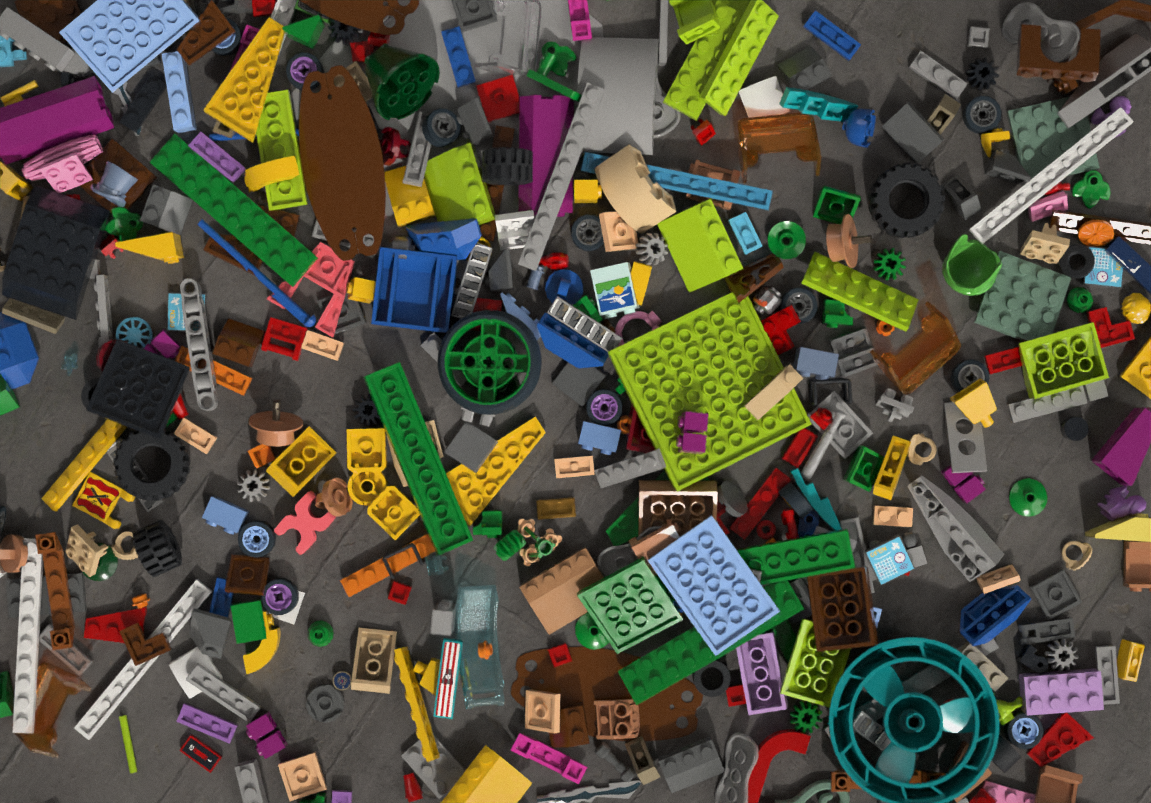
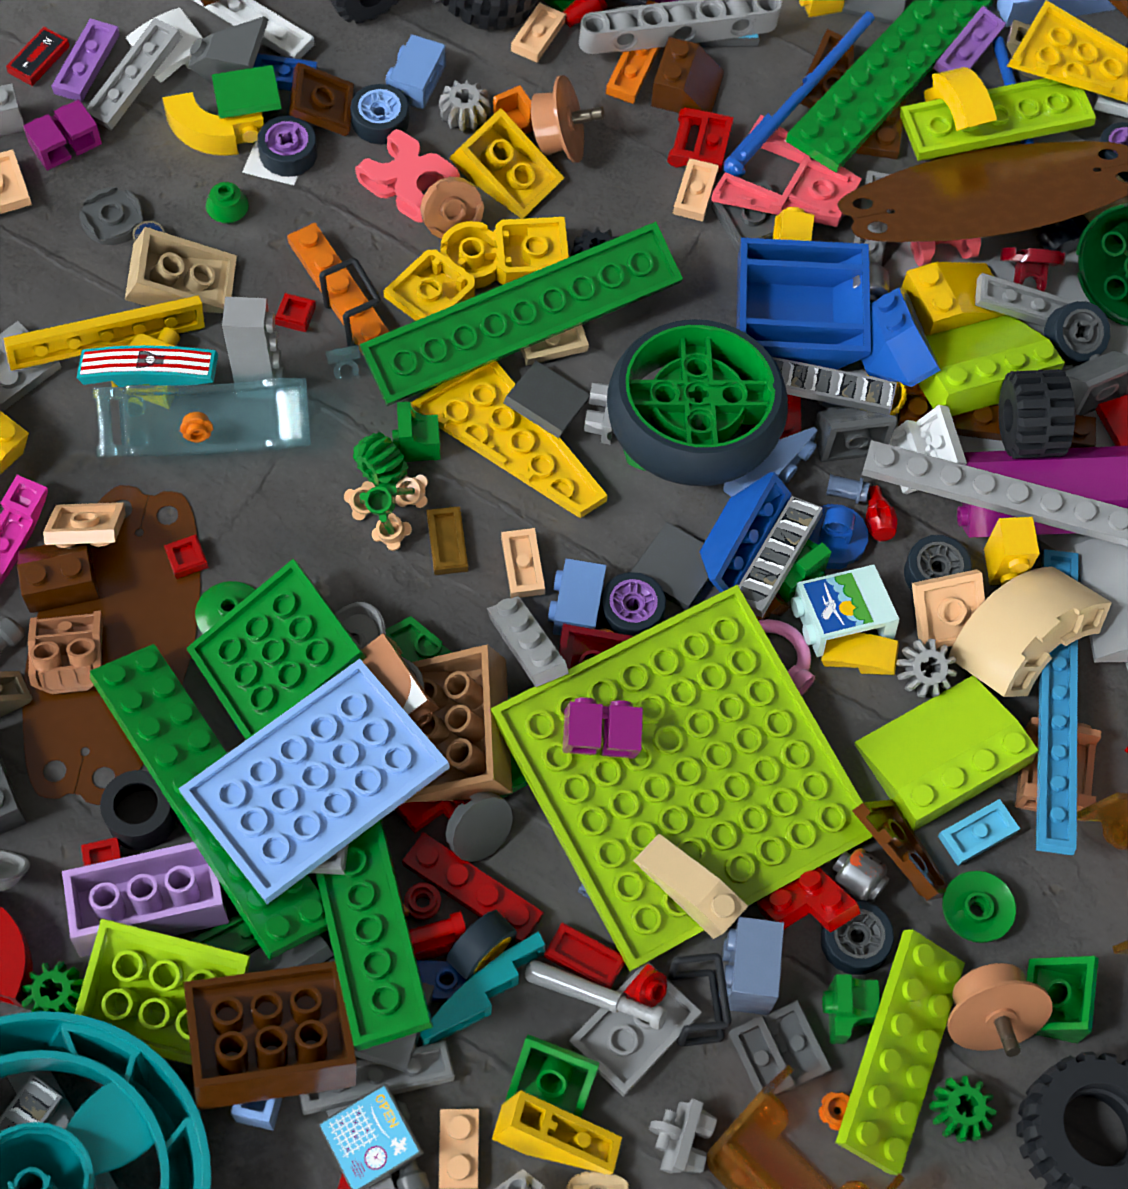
camera: 90 degrees right, 25 degrees down
(555, 590) = (304, 527): medium nougat slope -> none

